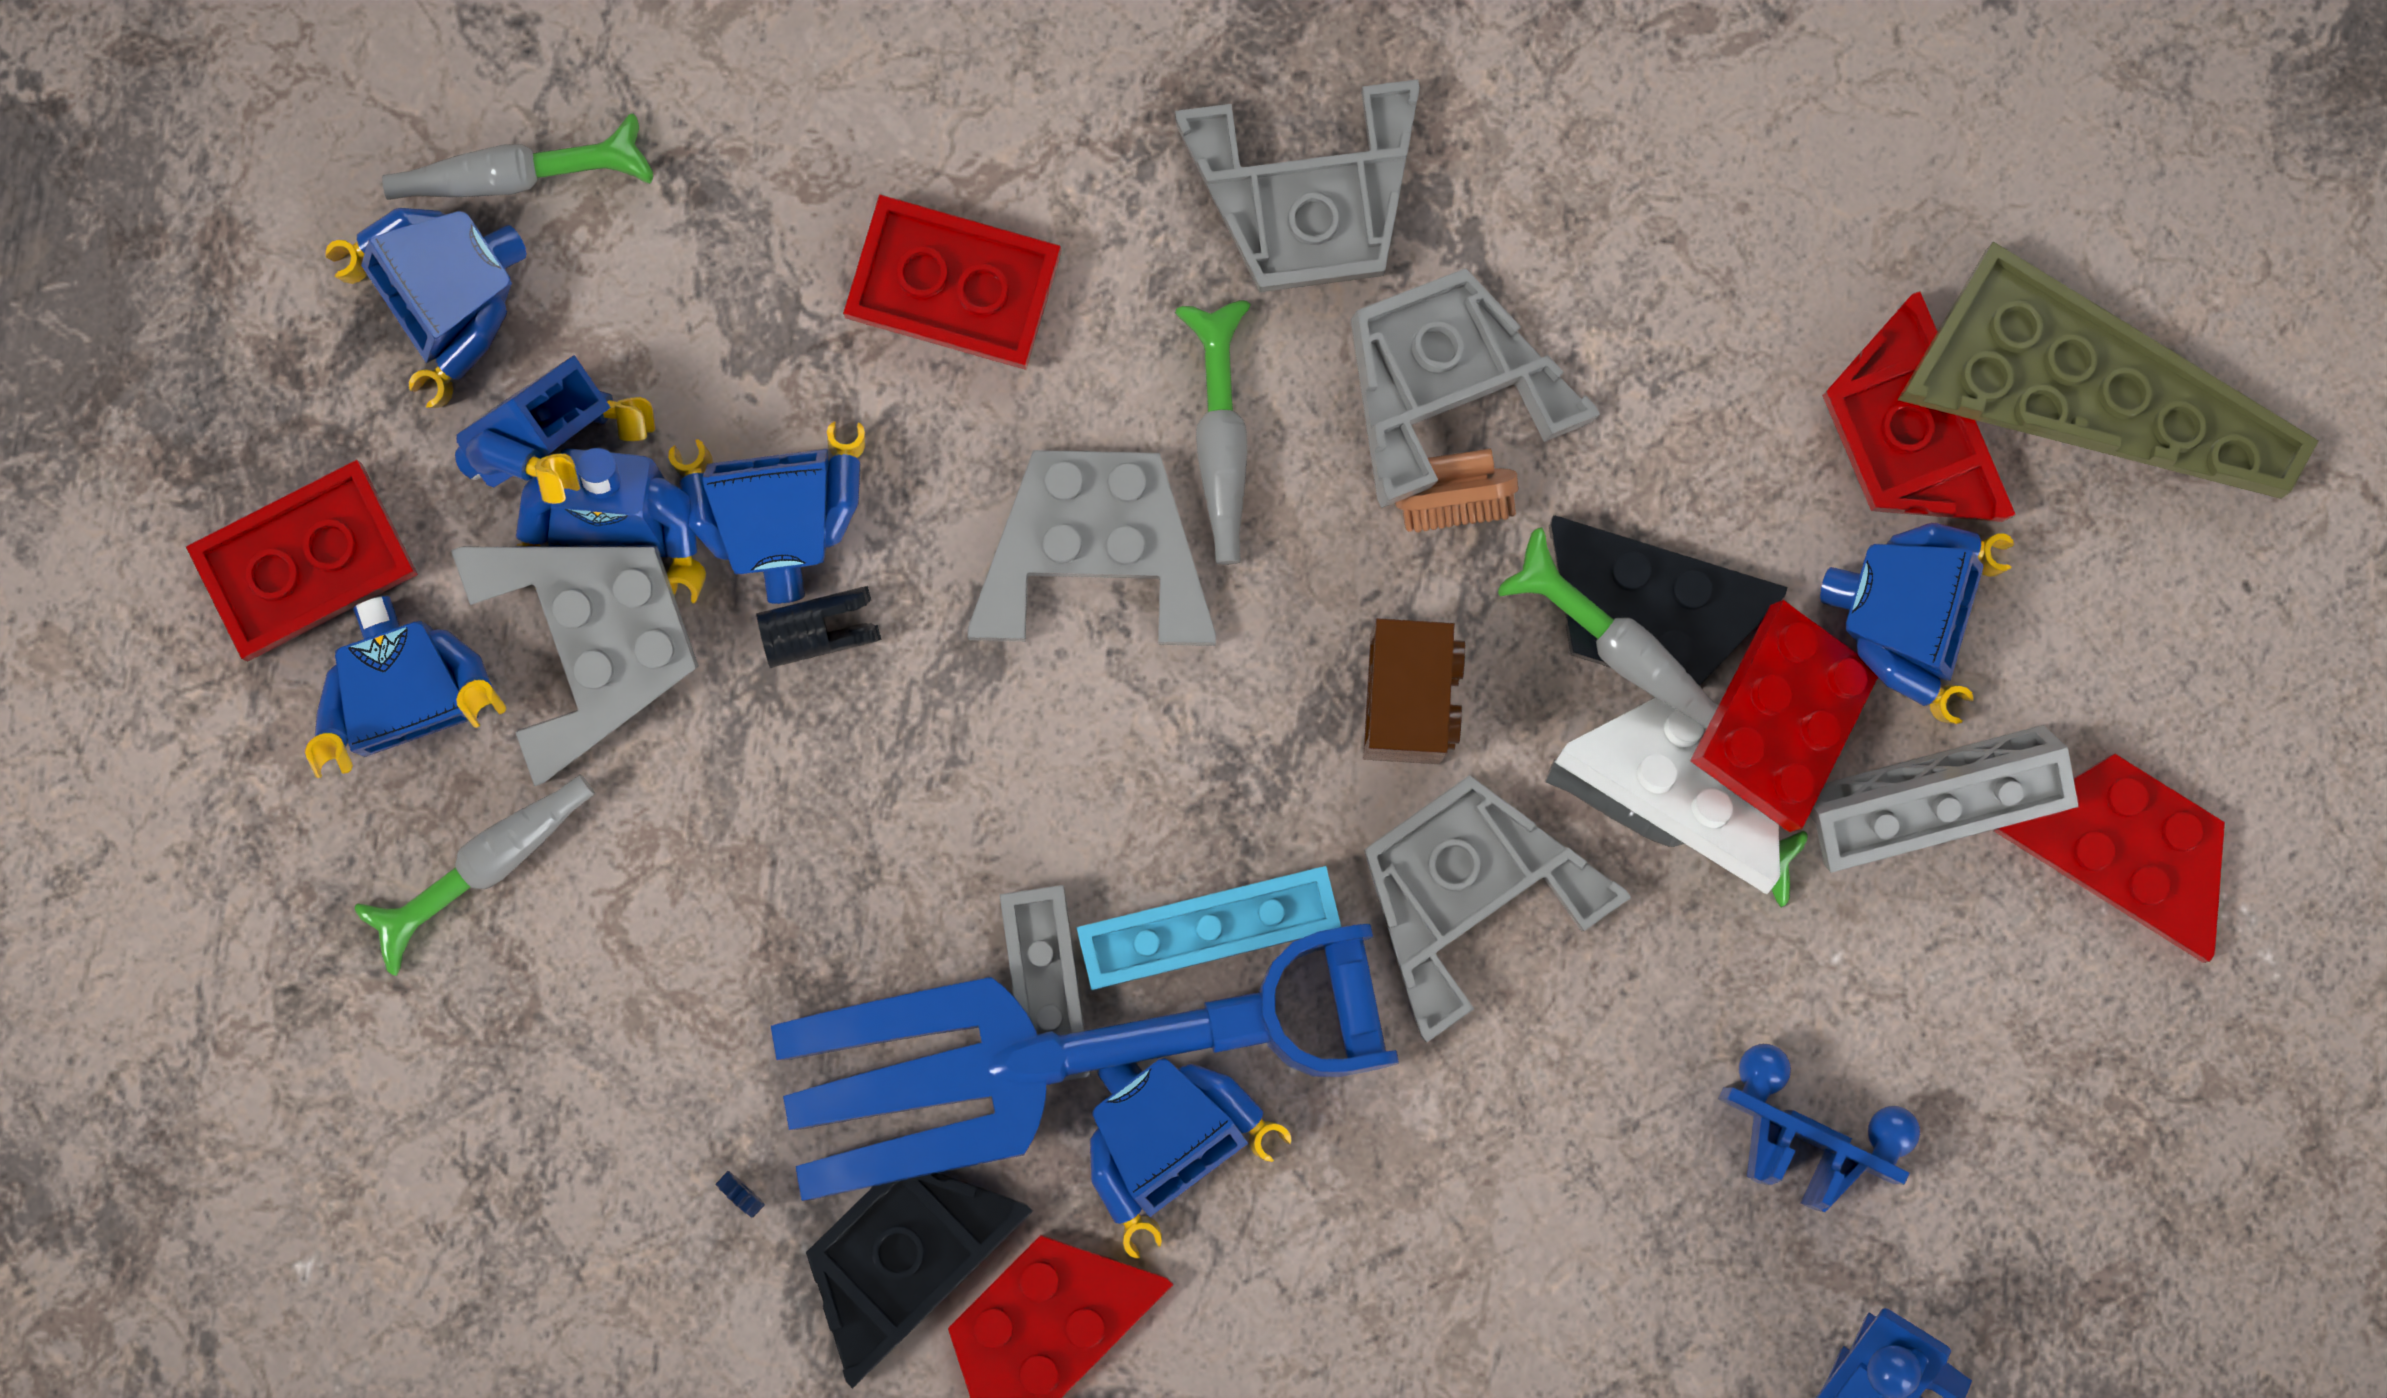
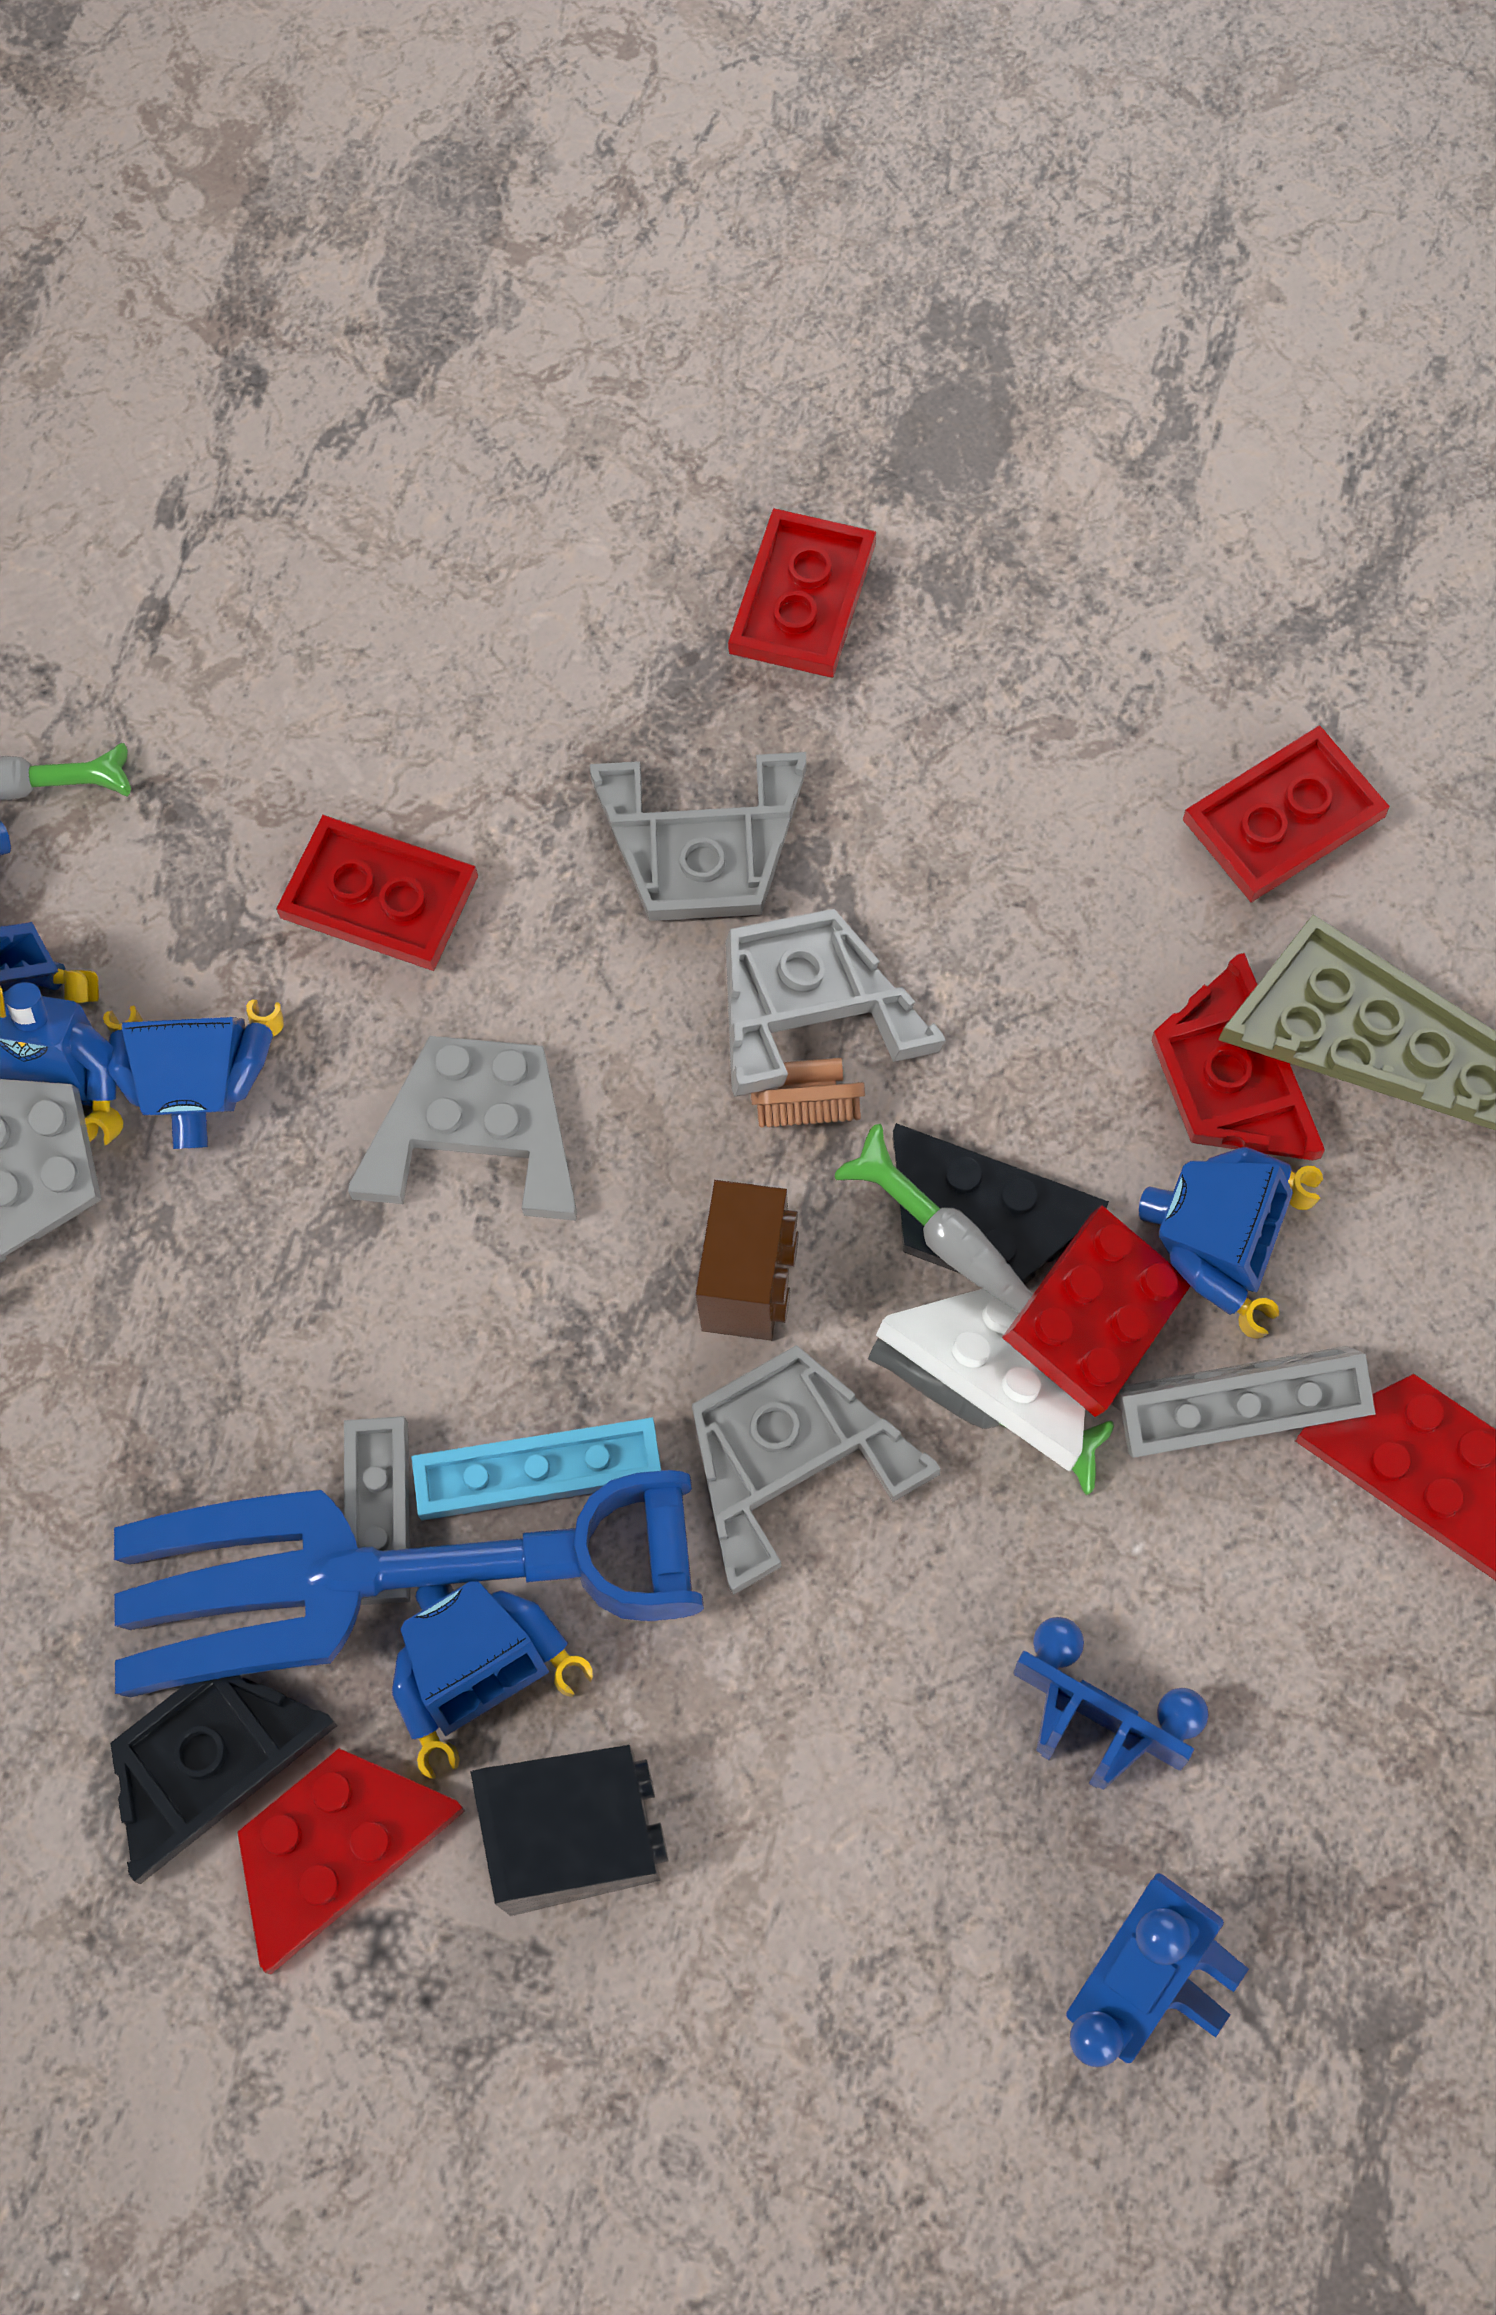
camera: 10 degrees right, 15 degrees down
(740, 1194) = (58, 1684): dark blue piece -> none
(801, 631) = (200, 1173): black hinge -> none
(1221, 431) = (600, 1031): light grey piece -> none
(1289, 1300) = (567, 1828): none -> black slope
(1957, 115) = (1285, 813): none -> red plate

